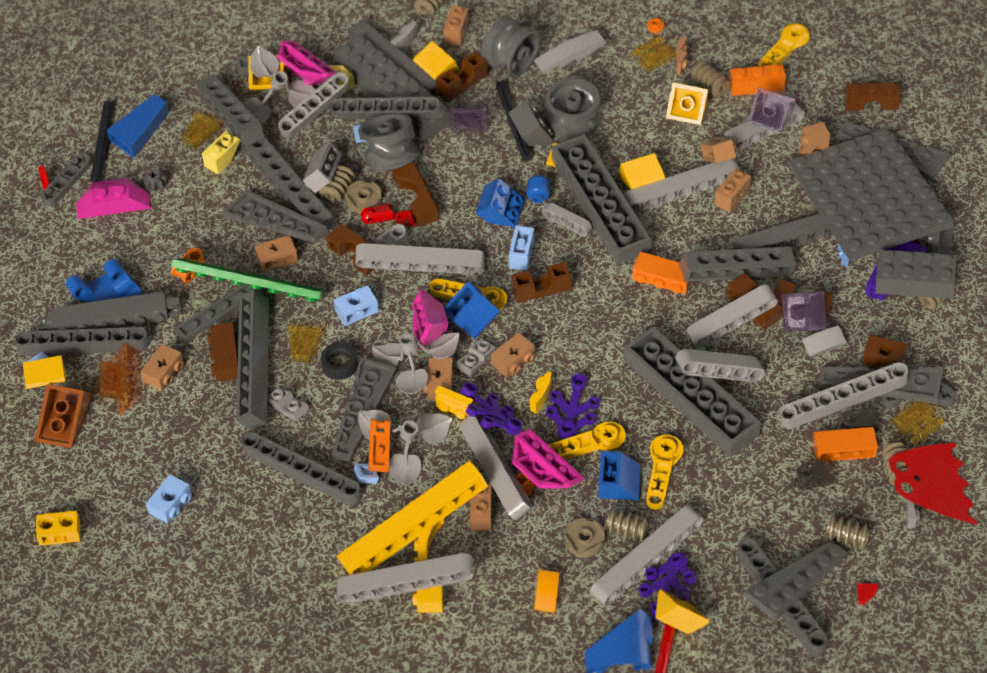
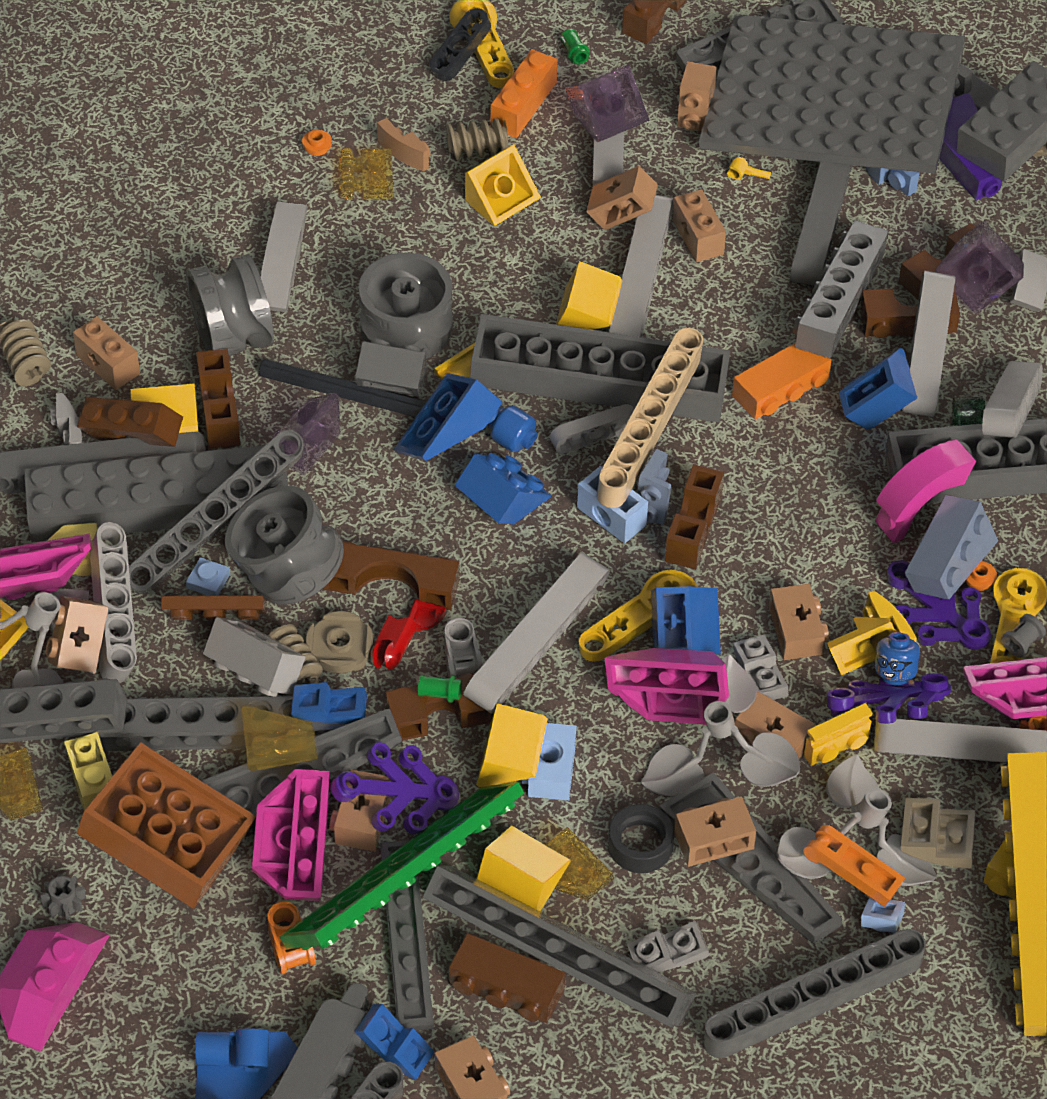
camera: 60 degrees left, 0 degrees up
(162, 328) = (393, 1041): none -> blue slope
(210, 188) = (165, 825): none -> dark orange slope
(237, 237) = (293, 835): none -> dark pink wedge
(281, 199) = (276, 739): none -> clear yellow wing
(284, 101) = (83, 650): none -> brick
(285, 324) = (522, 867): none -> yellow slope
(291, 259) = (401, 788): none -> dark purple plant
(315, 206) = (321, 704): none -> blue slope
(339, 138) = (184, 607): none -> reddish brown plate
(345, 281) = (511, 746): none -> yellow slope
(354, 237) = (440, 687): none -> green pin
(356, 381) = (714, 831): none -> medium nougat brick
(413, 51) = (143, 420): none -> reddish brown arch
(427, 469) = (938, 833): none -> dark tan slope
(514, 401) = (897, 658): none -> blue head
(516, 385) = (859, 646): none -> yellow slope
(521, 162) = (450, 415): none -> blue slope
(542, 255) = (654, 488): none -> sand blue bracket
(572, 445) = (1023, 635): none -> dark grey bush
(573, 227) = (649, 418): none -> tan beam
(602, 389) = (951, 547): none -> sand blue wedge
(606, 418) = (982, 582): none -> orange plate
(628, 351) = (918, 482): none -> dark pink arch
(682, 311) = (879, 391): none -> blue slope
(777, 38) = (459, 57): none -> black beam
(791, 187) = (740, 167): none -> yellow hand
(811, 83) = (576, 49): none -> green pin

